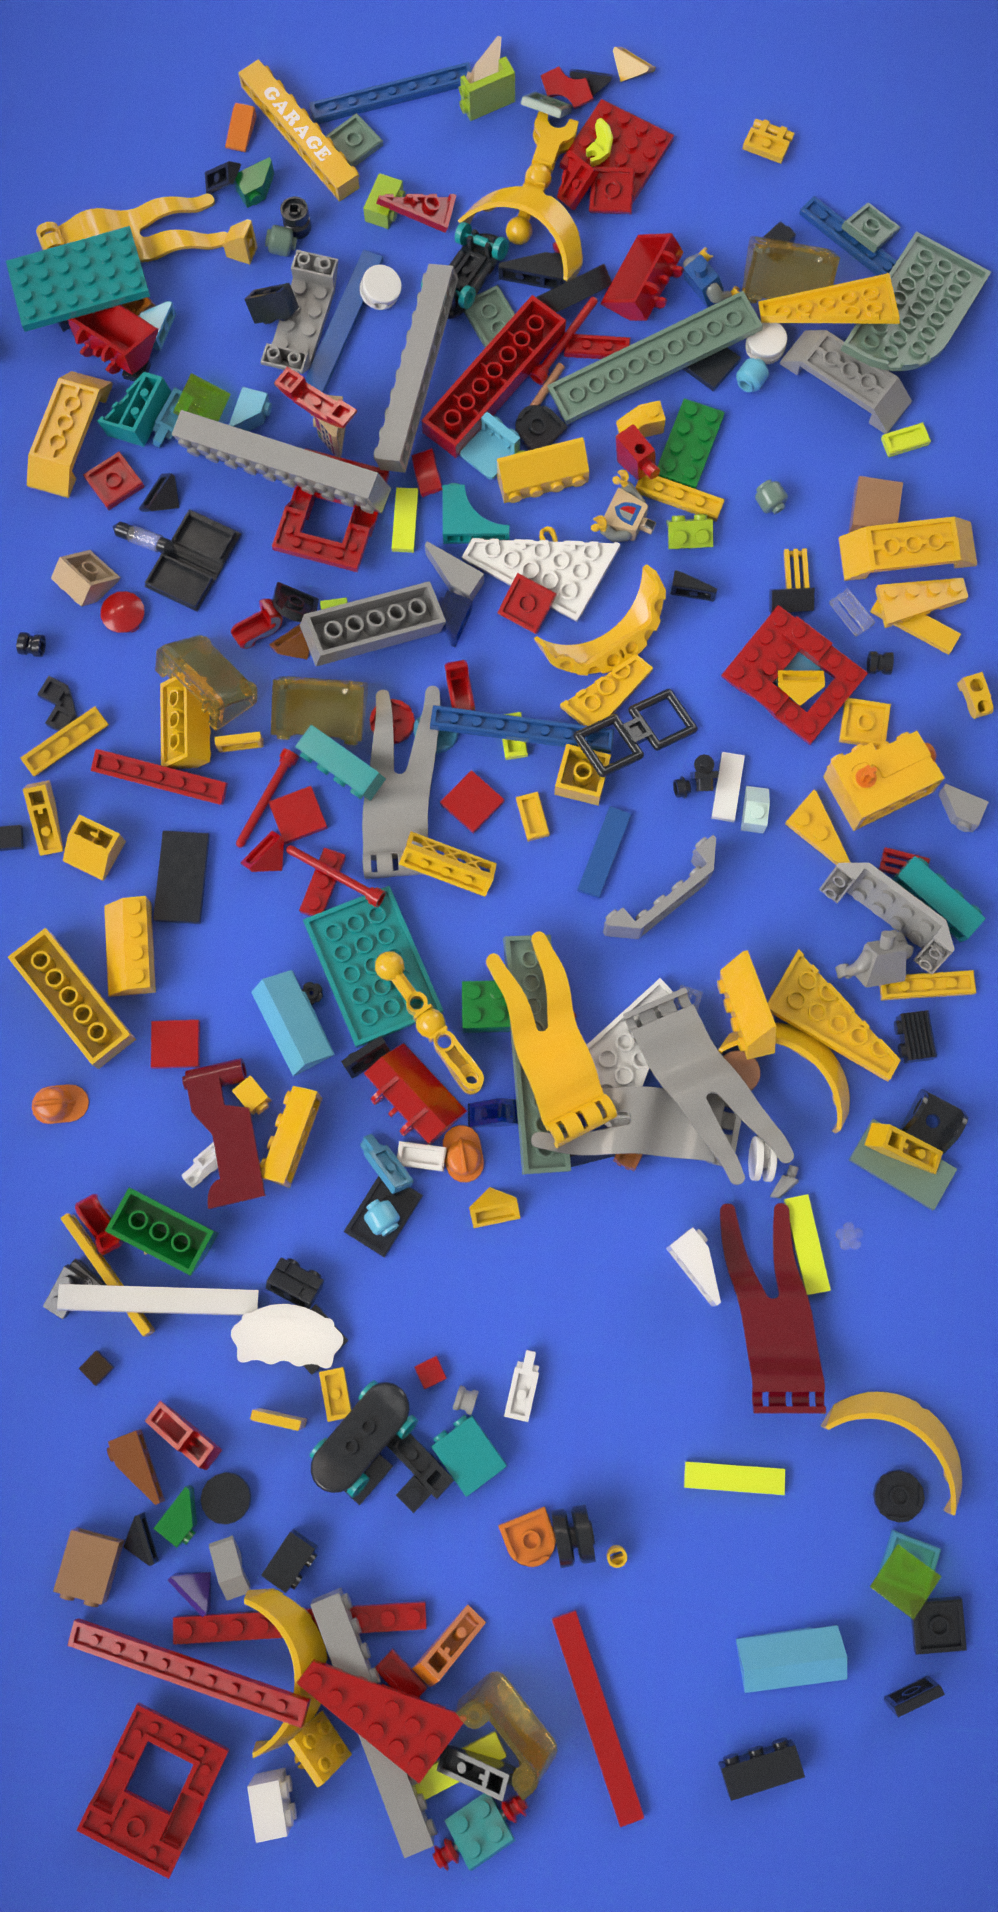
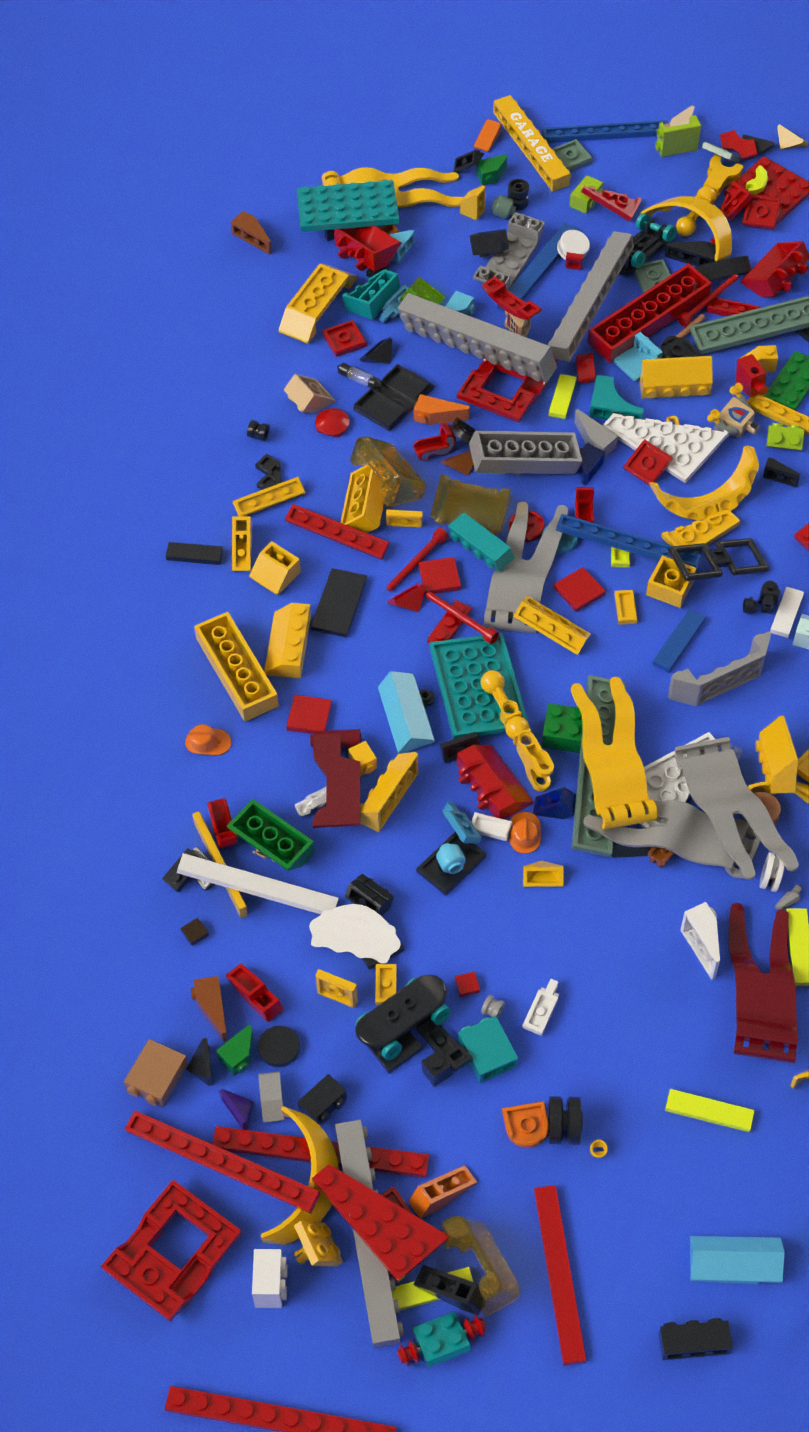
camera: 10 degrees right, 20 degrees down
(251, 573) = (438, 411): none -> orange slope
(385, 310) = (574, 261): none -> red tile

